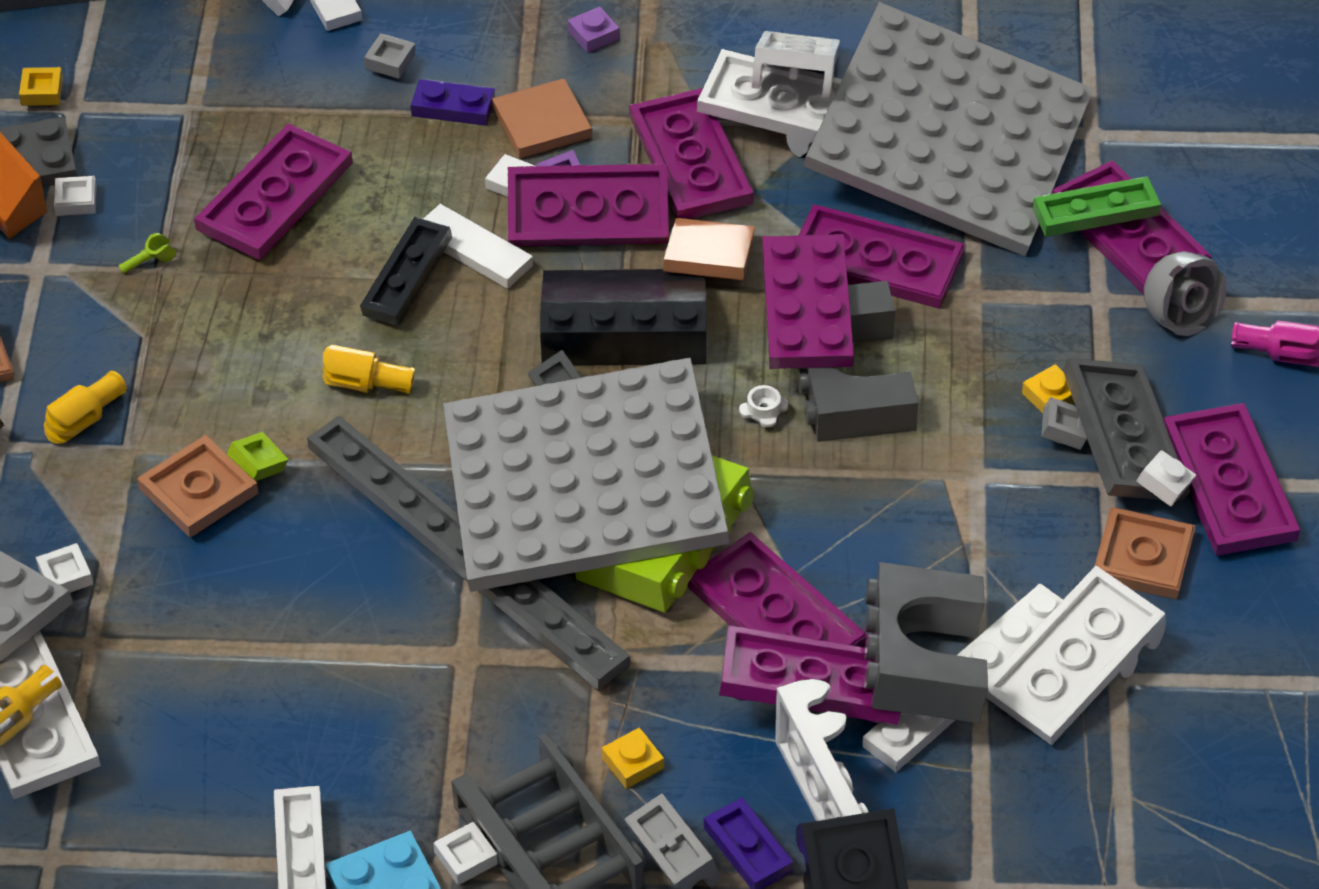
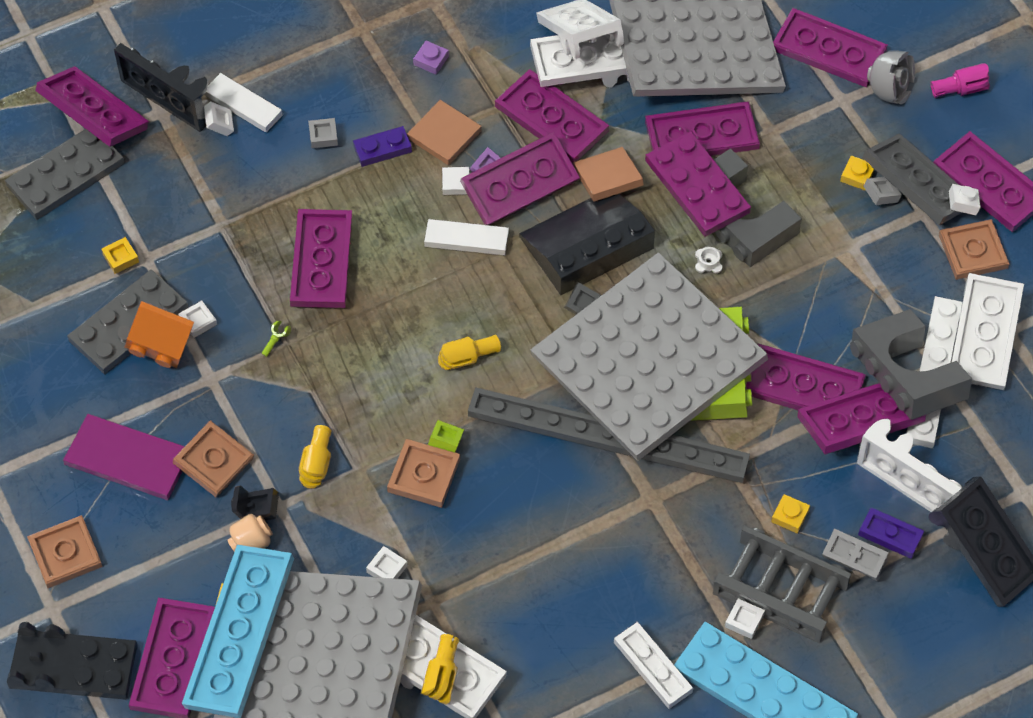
camera: 30 degrees left, 10 degrees up
(406, 271) = (443, 273): black plate -> none
(1096, 206) = (810, 44): bright green plate -> none

